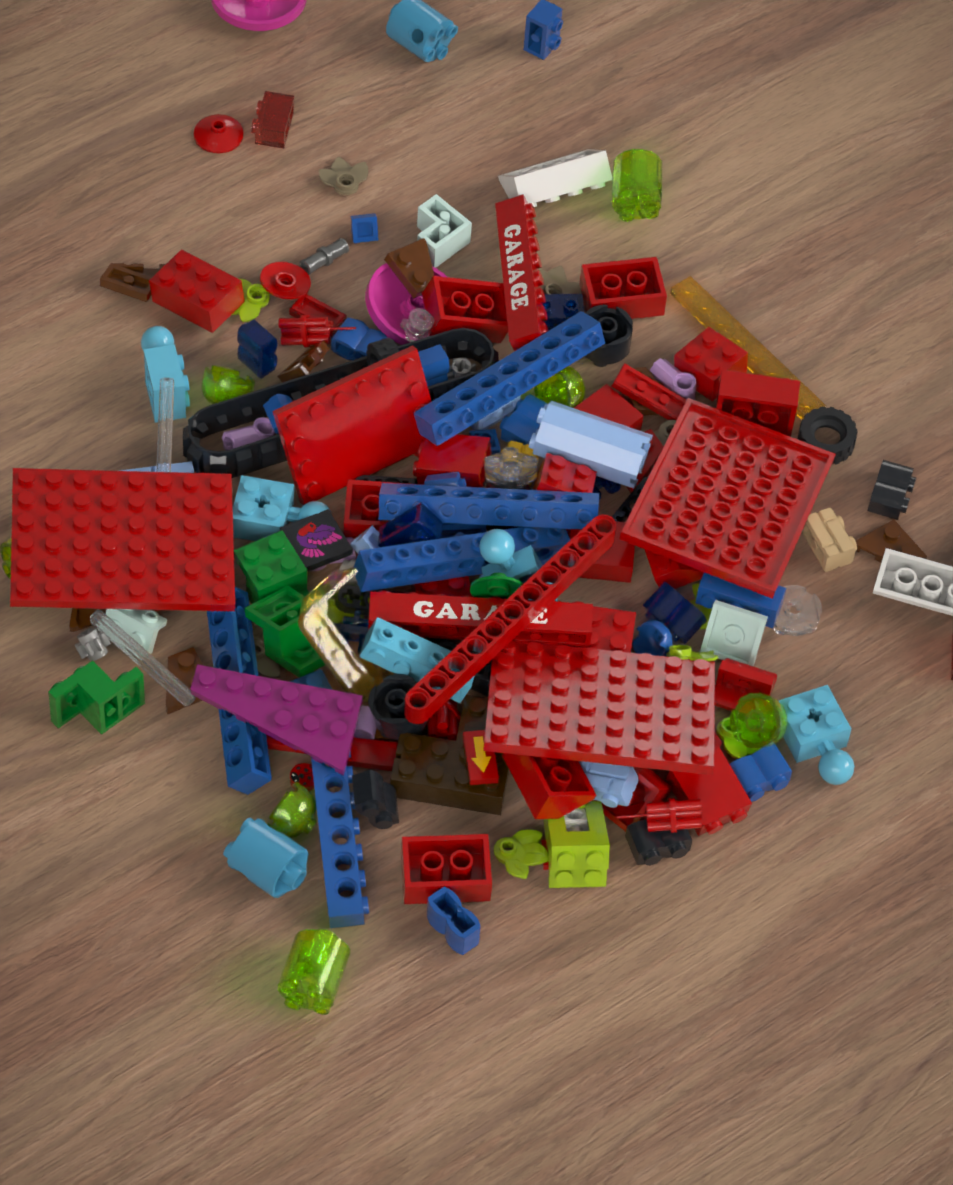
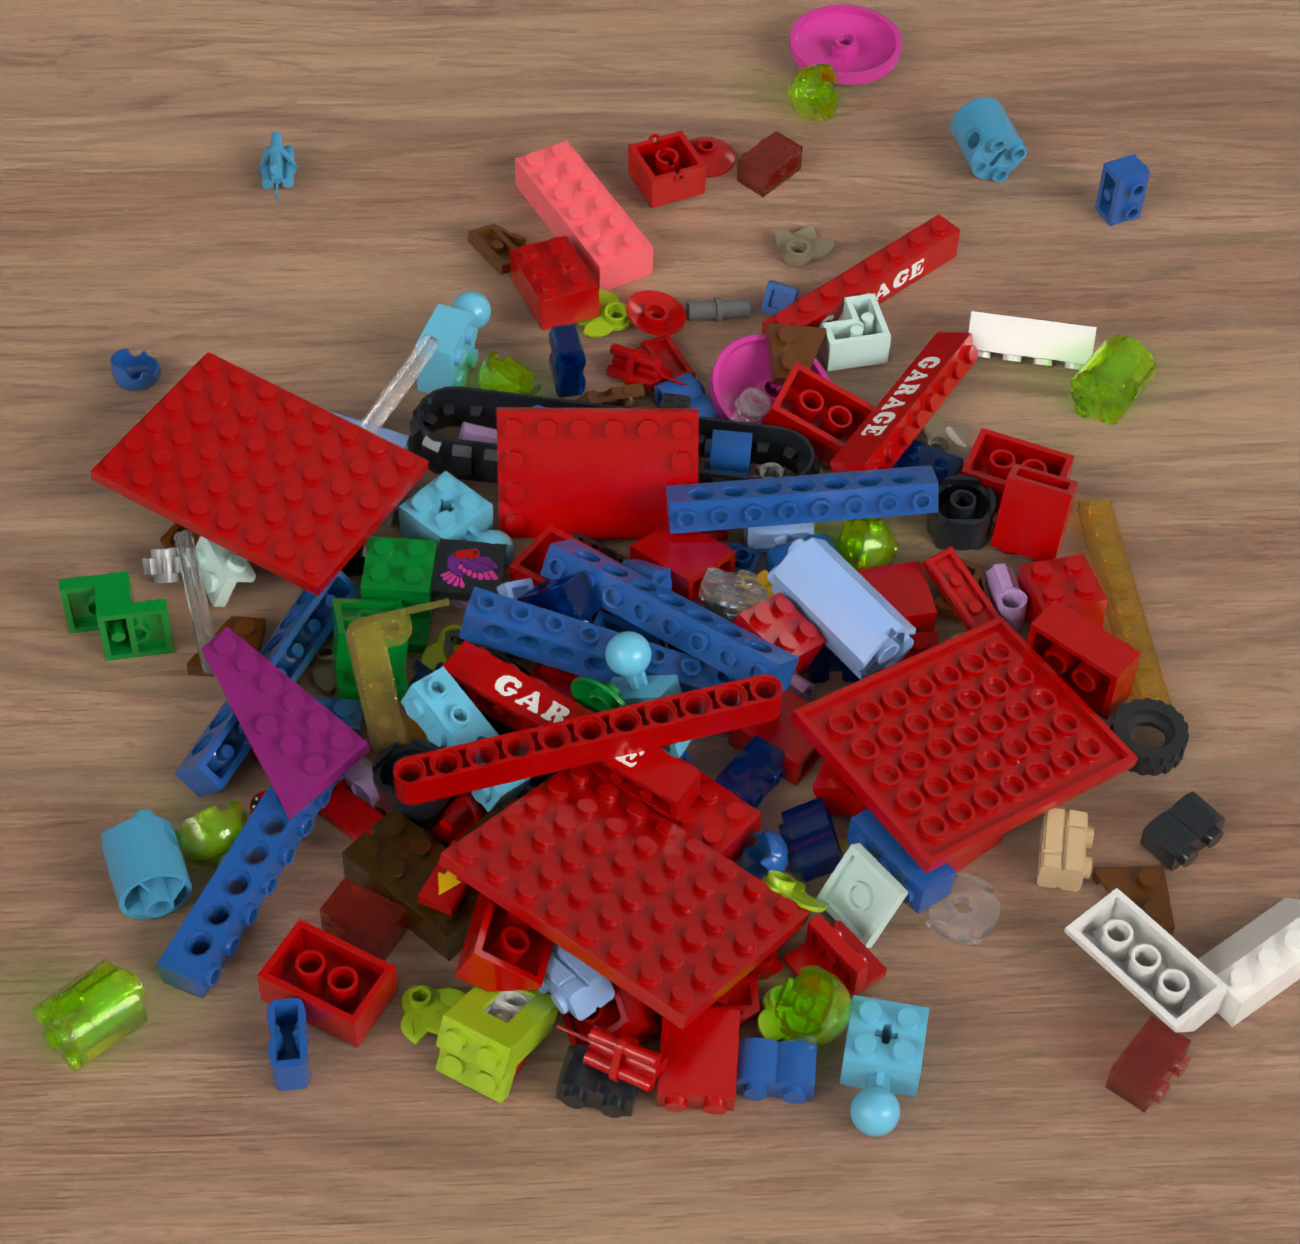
camera: 35 degrees right, 5 degrees down
(170, 223) = (579, 206): none -> coral brick
(206, 159) = (666, 169): none -> red brick
(264, 45) = (813, 92): none -> clear neon green cylinder
(375, 799) = (309, 865): black brick -> none
(416, 185) = (881, 273): none -> red brick
(431, 815) = (364, 919): none -> clear red brick
(605, 585) = (753, 771): none -> clear blue brick
(659, 312) = (1033, 513): none -> red brick

